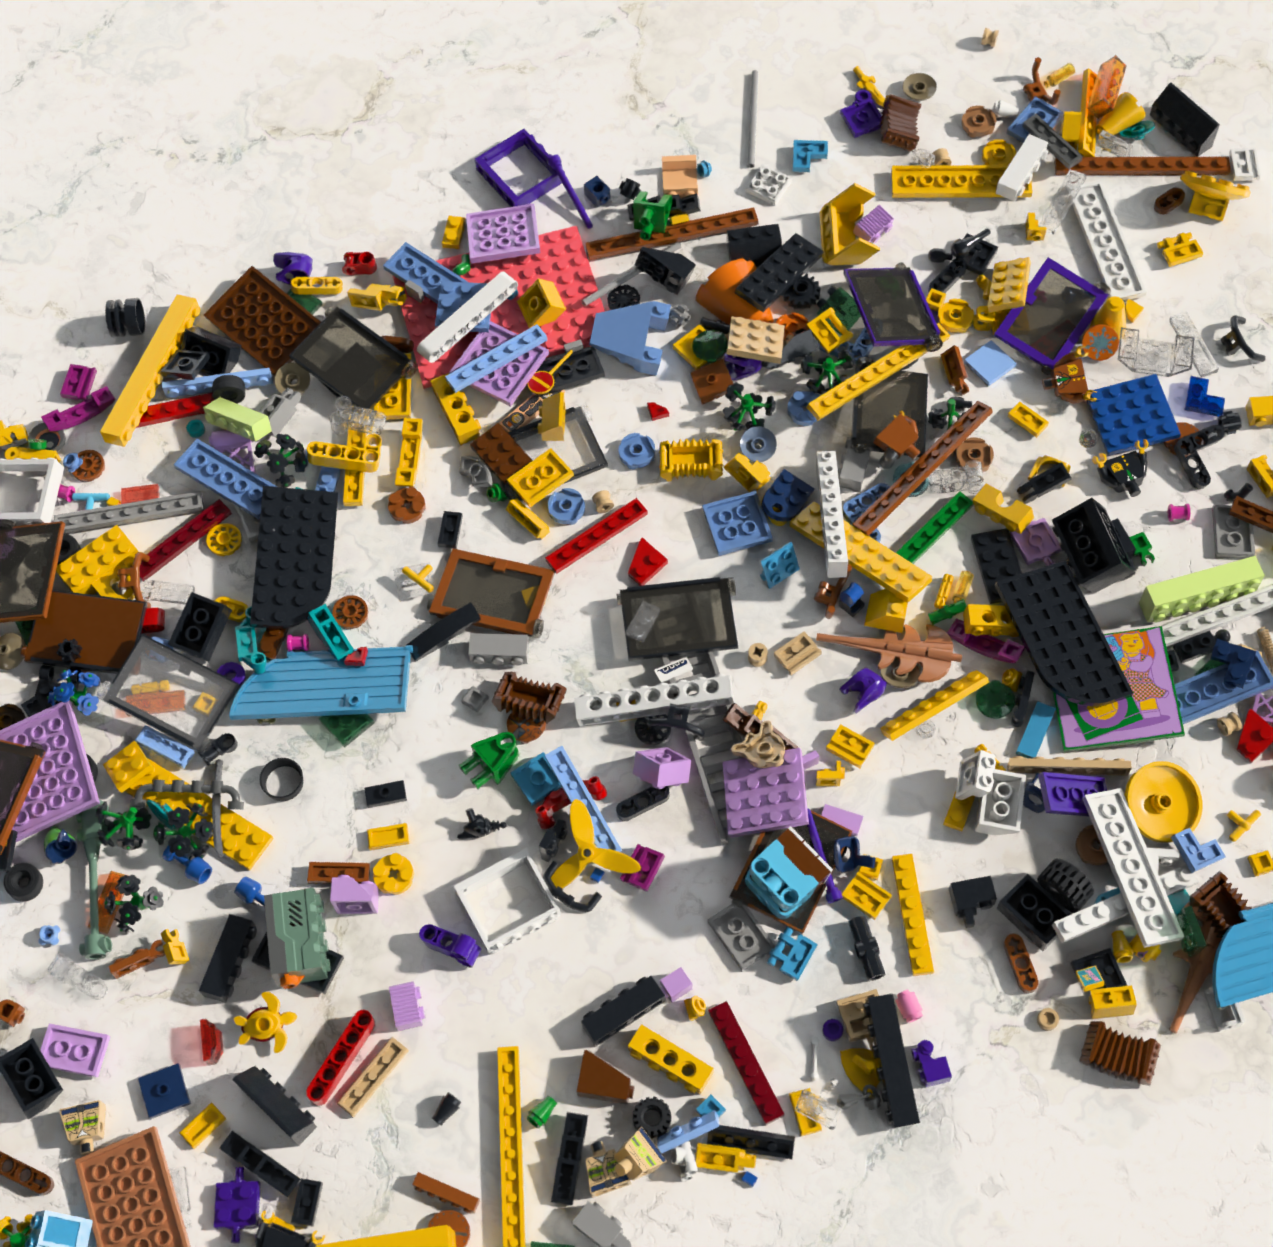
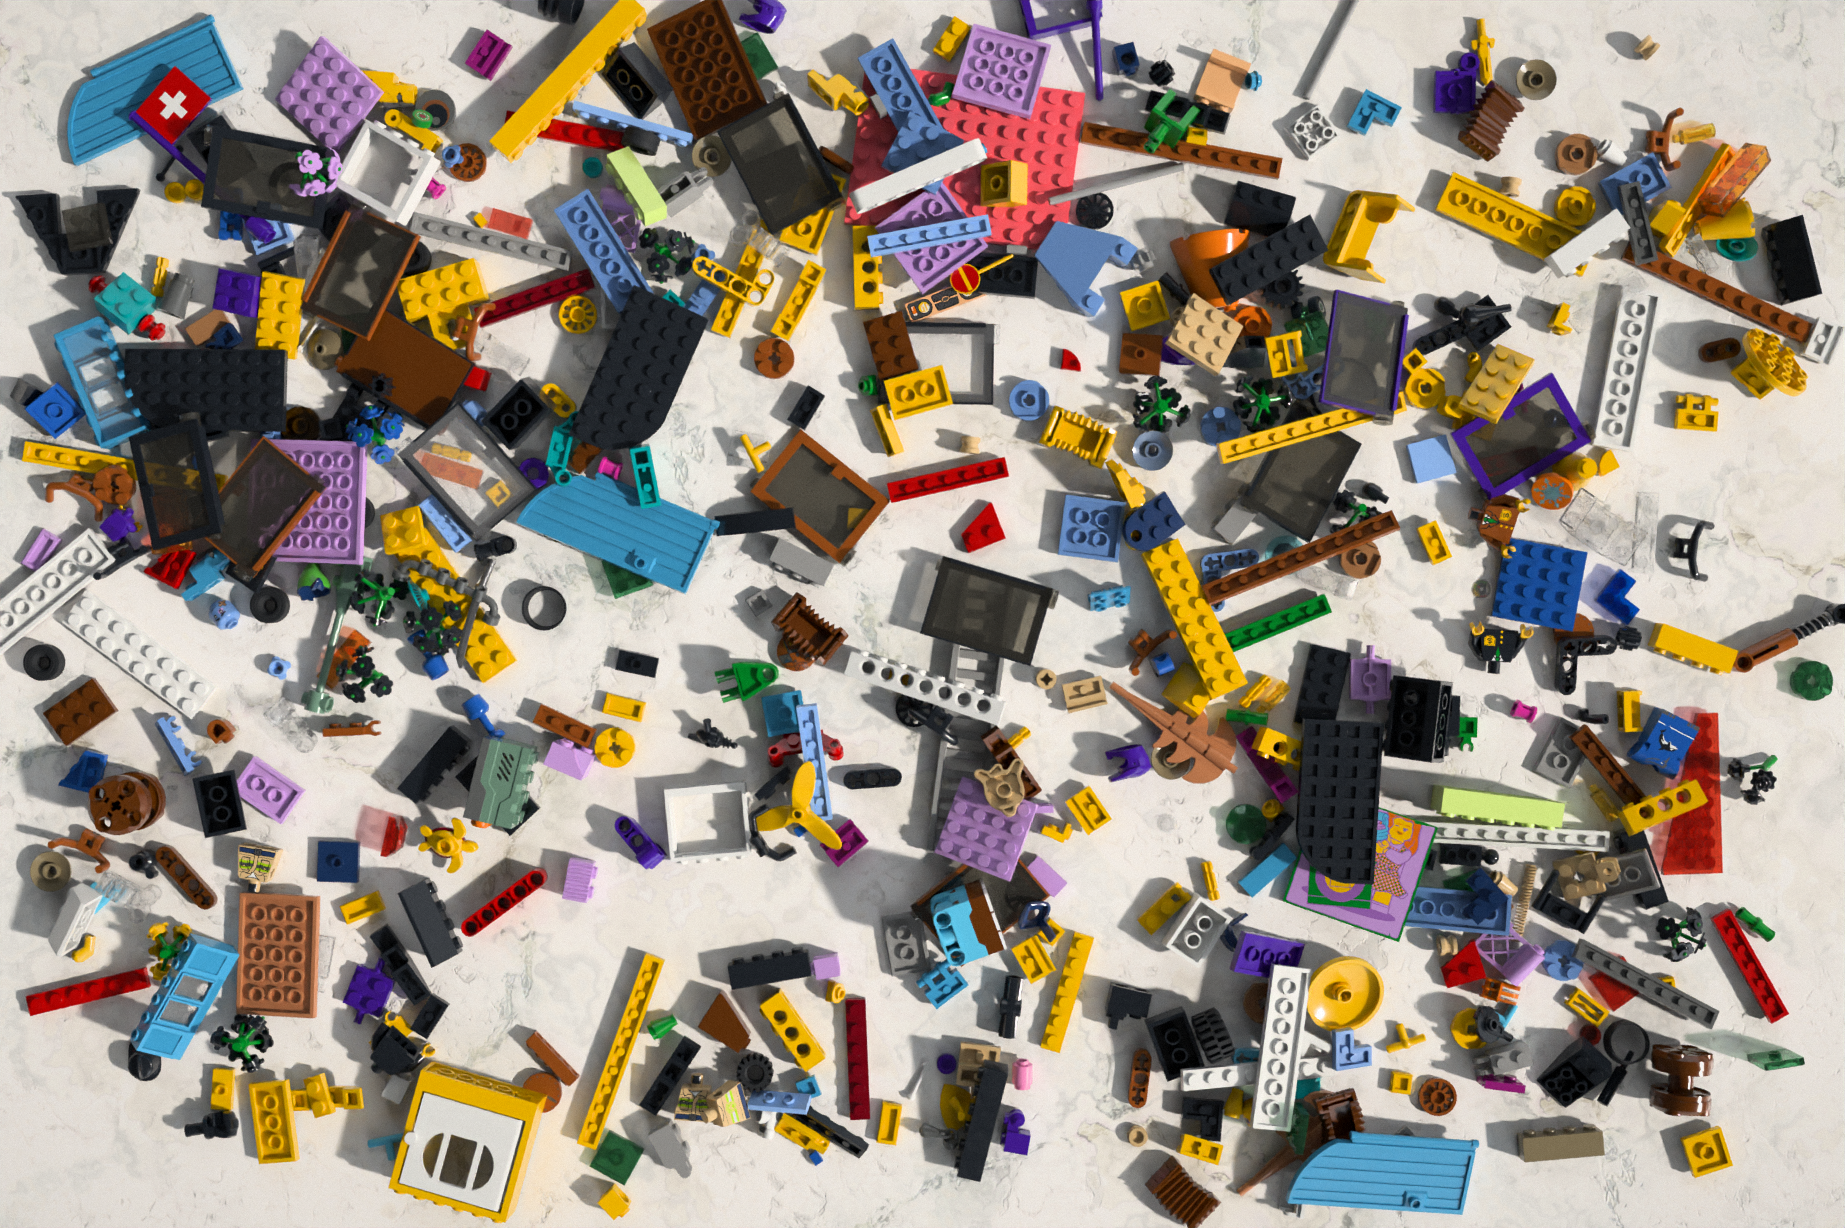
camera: 15 degrees right, 25 degrees up
(81, 412) = (478, 94): magenta slope -> none
(90, 497) = (458, 205): medium azure piece -> none
(173, 949) = (389, 736): yellow plate -> none
(185, 364) = (605, 90): black plate -> none
(304, 289) = (767, 34): yellow beam -> none
(350, 612) = (674, 454): dark orange wheel -> none
(357, 658) = (661, 514): red tile -> none
(360, 263) = (831, 34): red piece -> none
(372, 1077) = (527, 928): tan tile -> none
(447, 1107) = (581, 986): black cone -> none
(476, 470) = (859, 353): light grey tile -> none
(553, 418) = (957, 333): yellow slope -> none
(566, 516) = (932, 421): medium blue plate -> none
(643, 621) = (949, 604): clear plate -> none
(662, 767) = (903, 757): lavender slope -> none
(666, 268) = (1158, 207): black slope -> none
(673, 669) = (958, 660): white sticker -> none
(710, 345) = (1156, 314): clear green dish -> none
(818, 1108) = (901, 1128): clear plate -> none
(831, 514) = (1184, 570): white brick -> none
(833, 894) = (1009, 911): dark purple piece -> none
(874, 225) = (1396, 239): lavender brick -> none
(897, 440) = (1291, 518): dark orange torso -> none
(923, 157) = (1491, 178): clear plate -> none
(934, 705) = (1186, 805): yellow plate -> none
(955, 369) = (1391, 452): dark orange plate -> none
(975, 775) = (1185, 901): white plate -> none
(1014, 517) = (1360, 651): yellow arch -> none
(1045, 482) = (1413, 623): black hinge -> none
(1046, 460) = (1422, 594): yellow helmet -> none
(1067, 766) = (1271, 915): tan plate -> none
(1089, 978) = (1190, 1124): tile -> none

